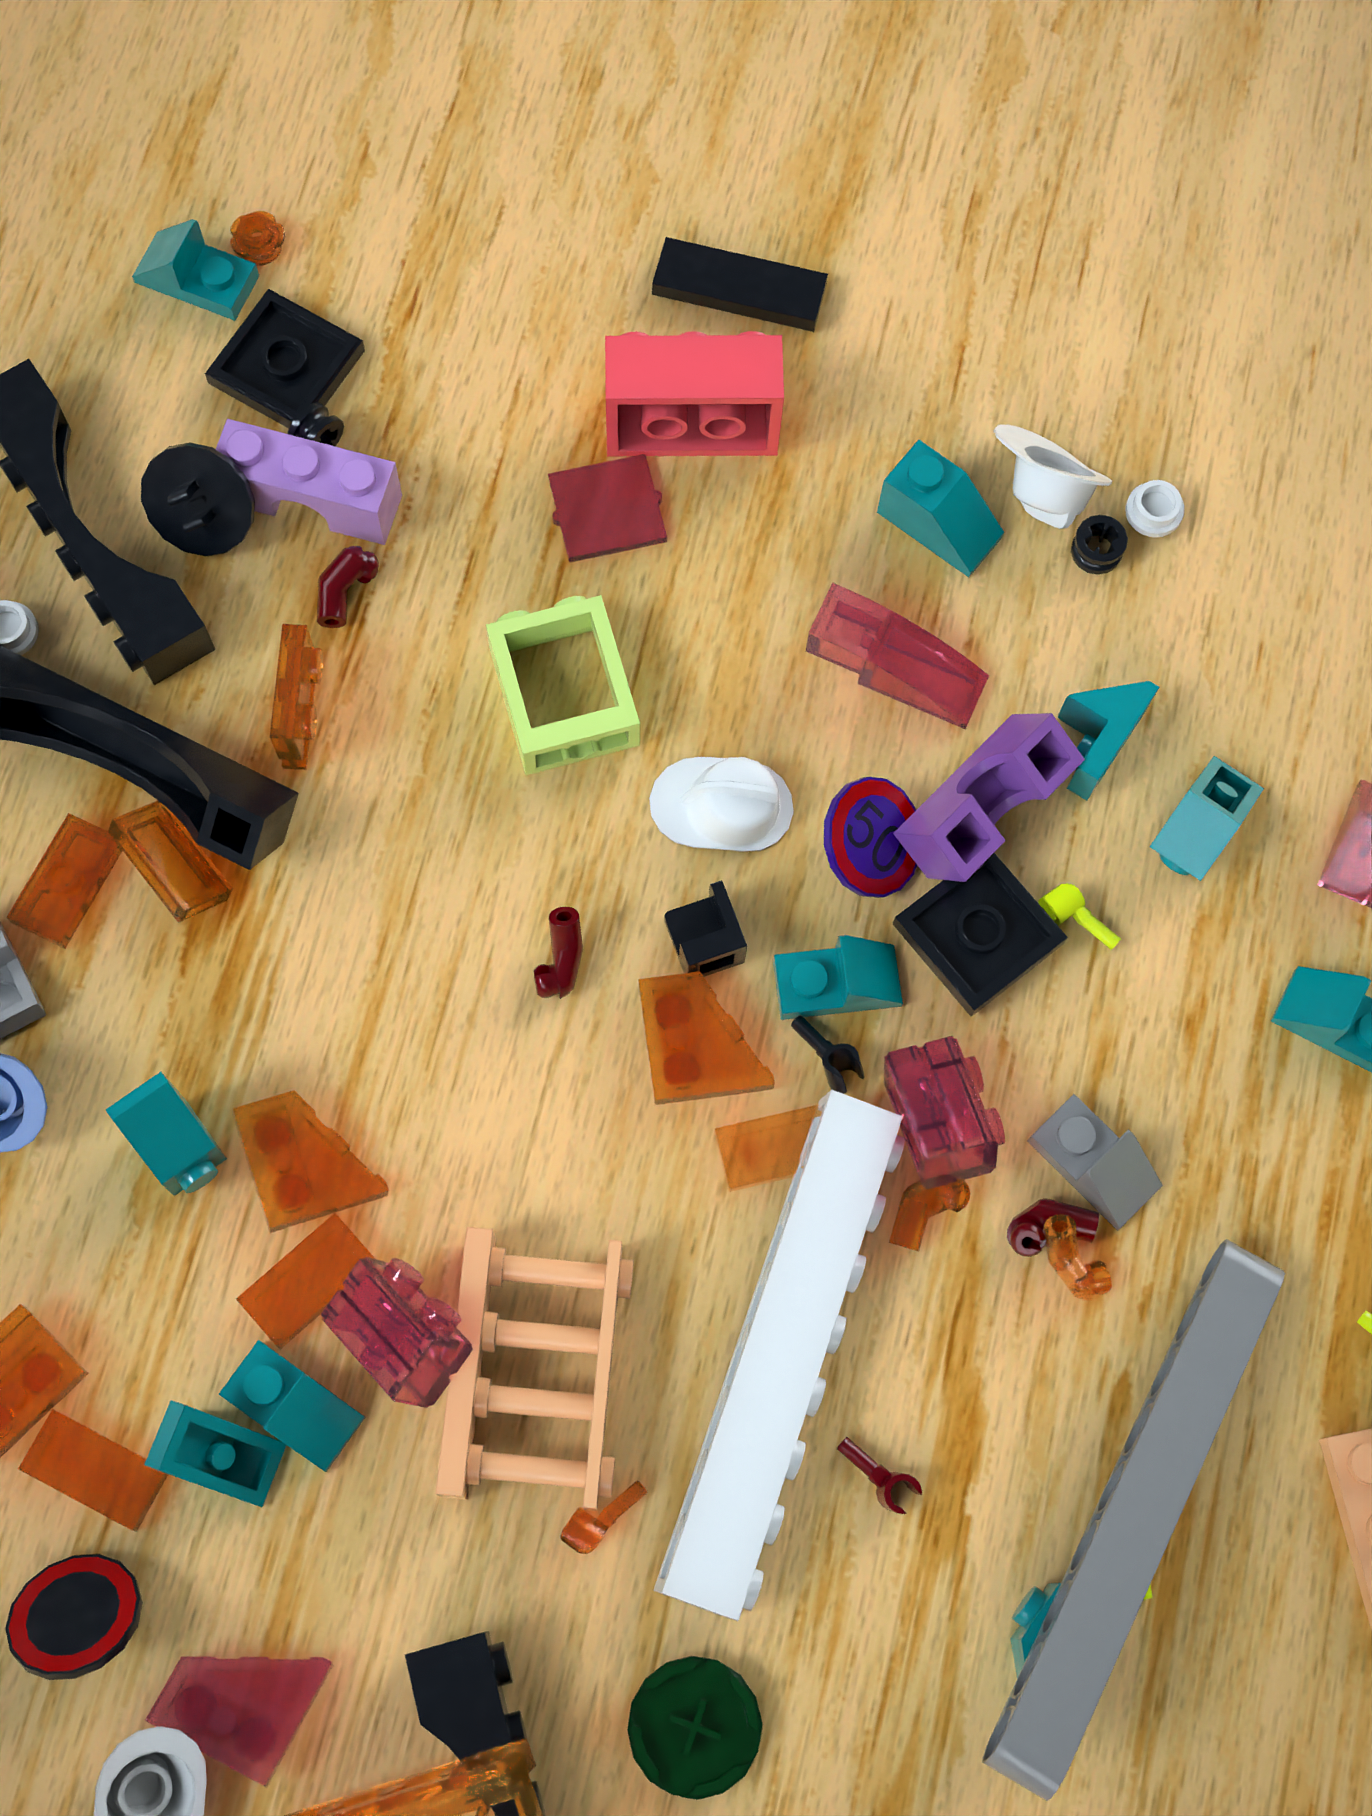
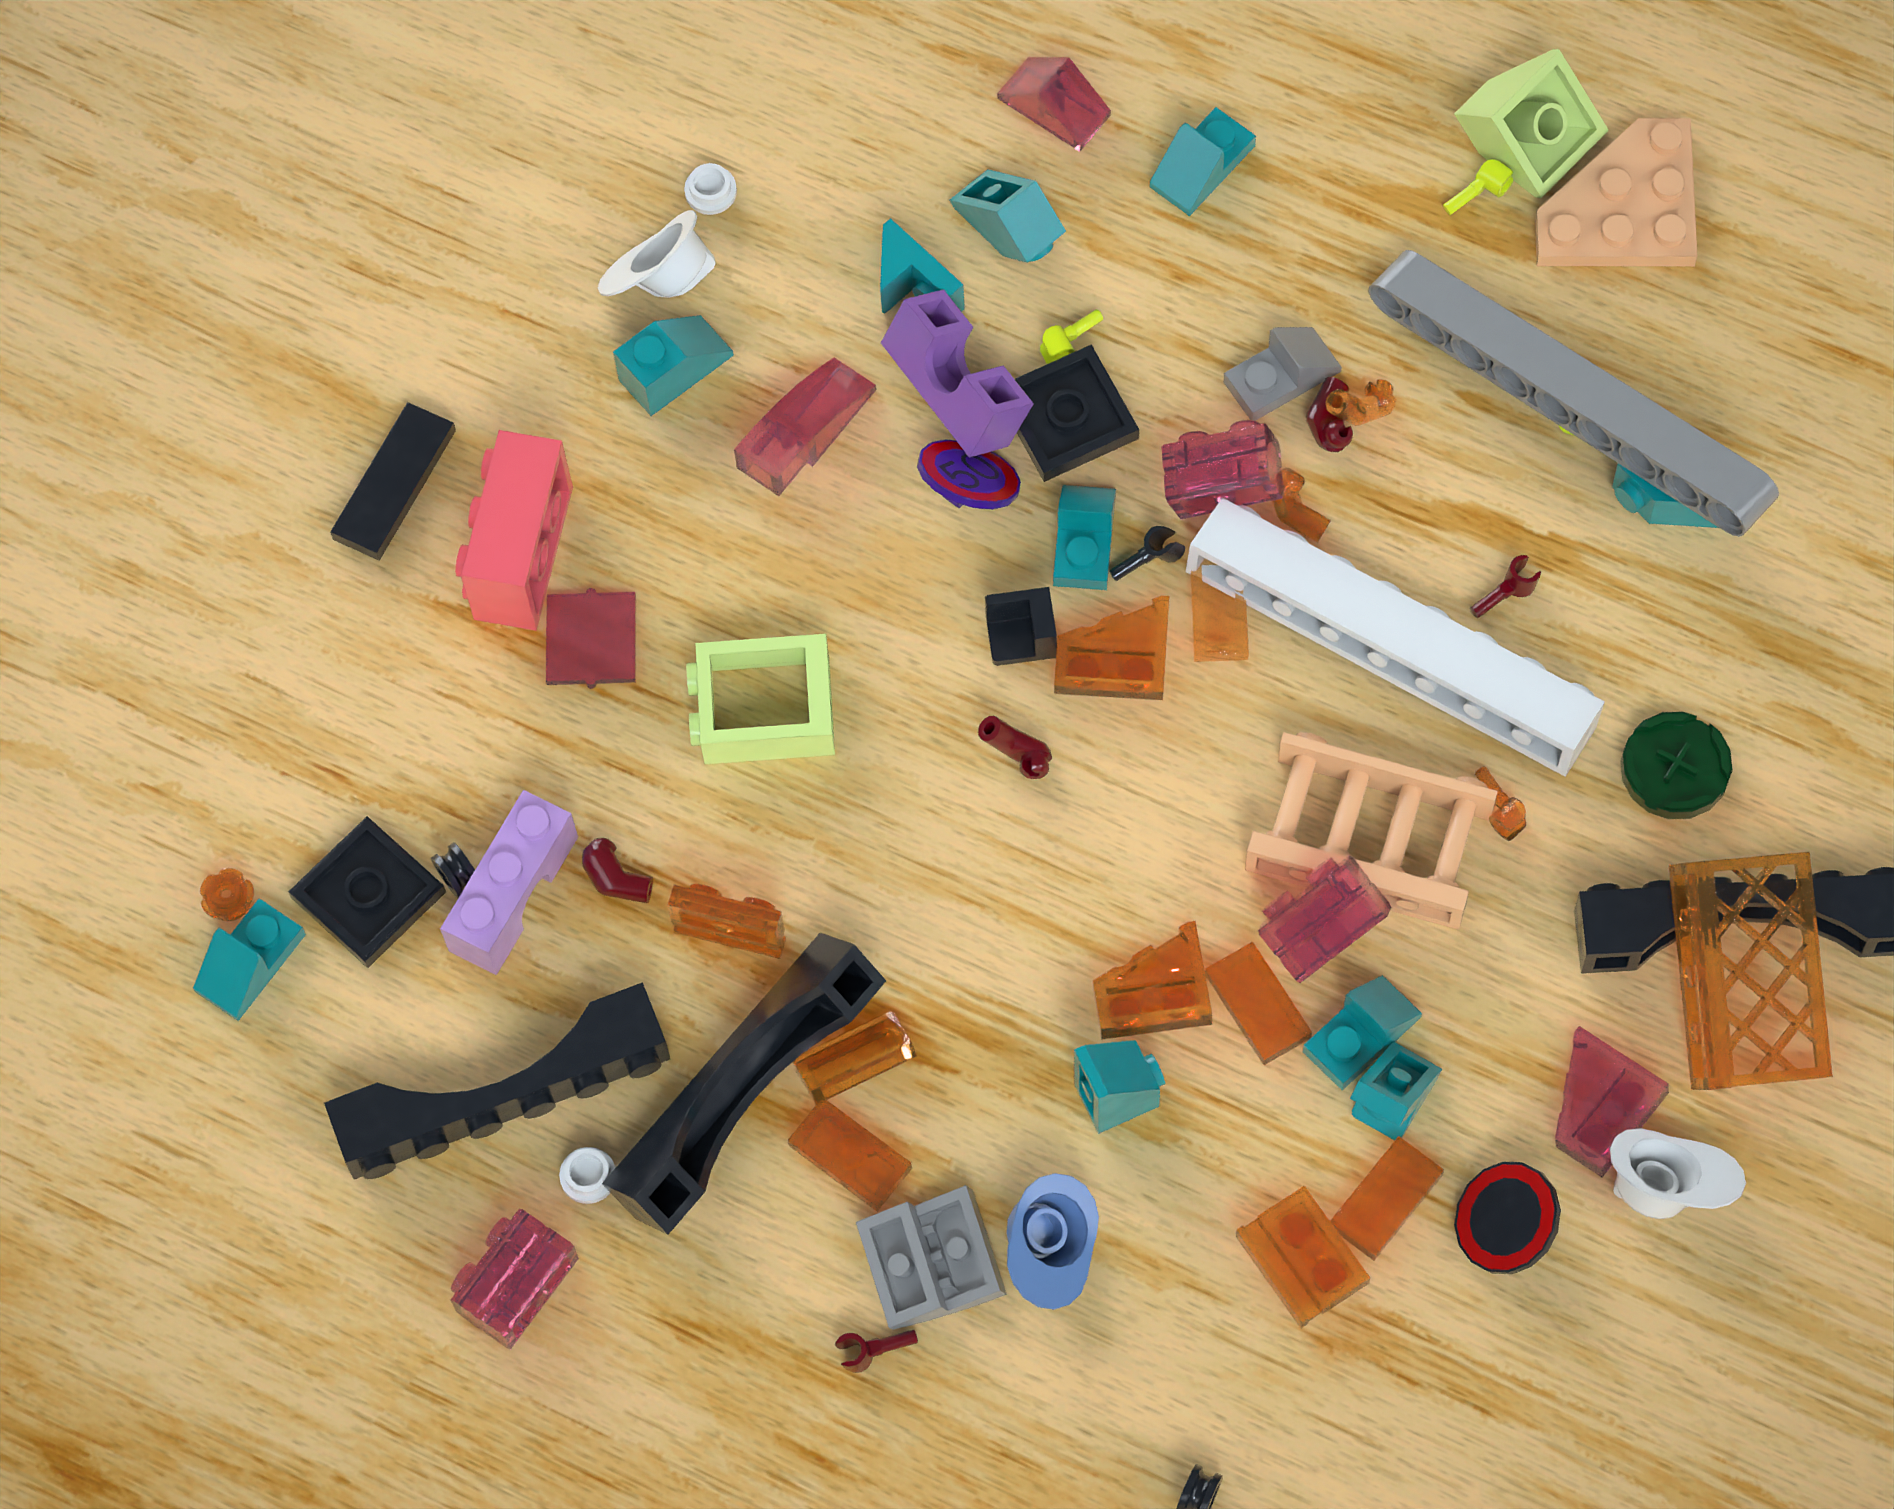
camera: 70 degrees left, 5 degrees down
(197, 499) = (508, 975): black piece -> none
(721, 804) = (901, 598): white piece -> none
(1106, 528) = (745, 234): black bush -> none

